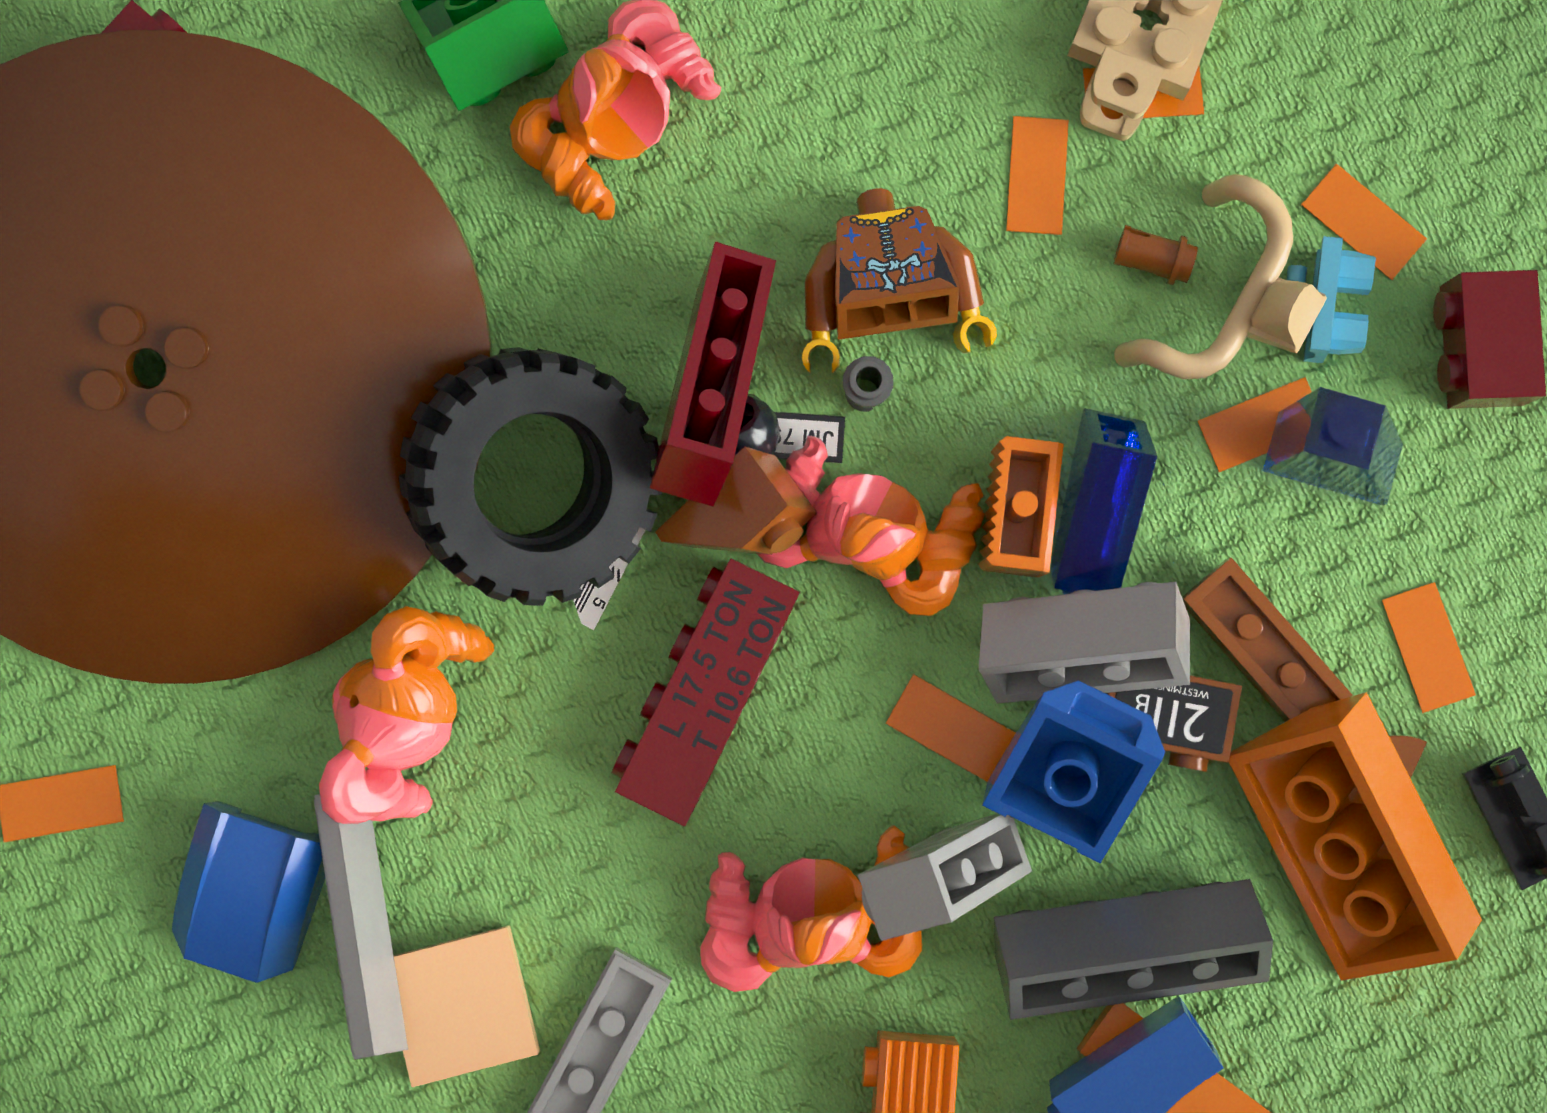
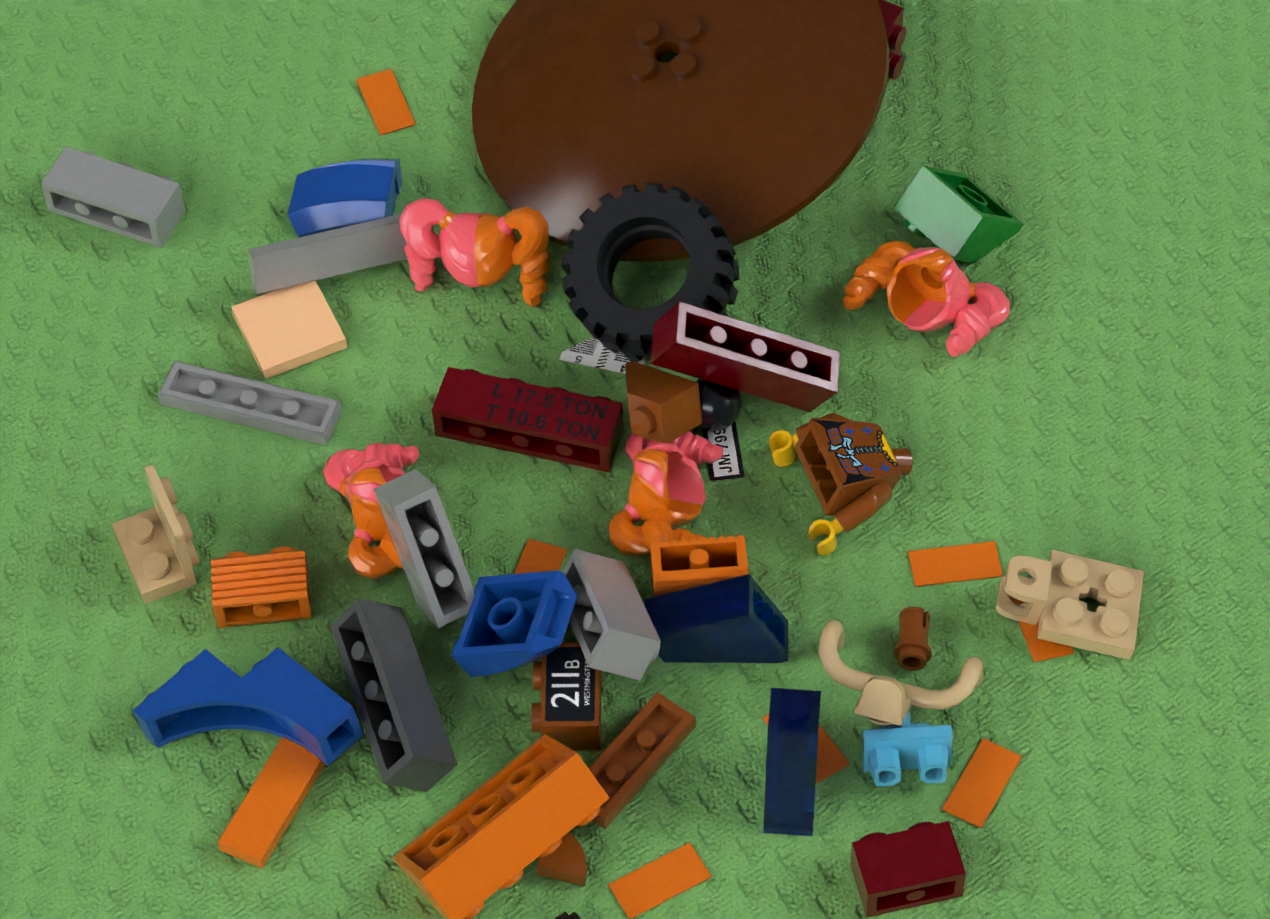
camera: 85 degrees right, 30 degrees down
(869, 369) = (766, 465): dark grey pin -> none

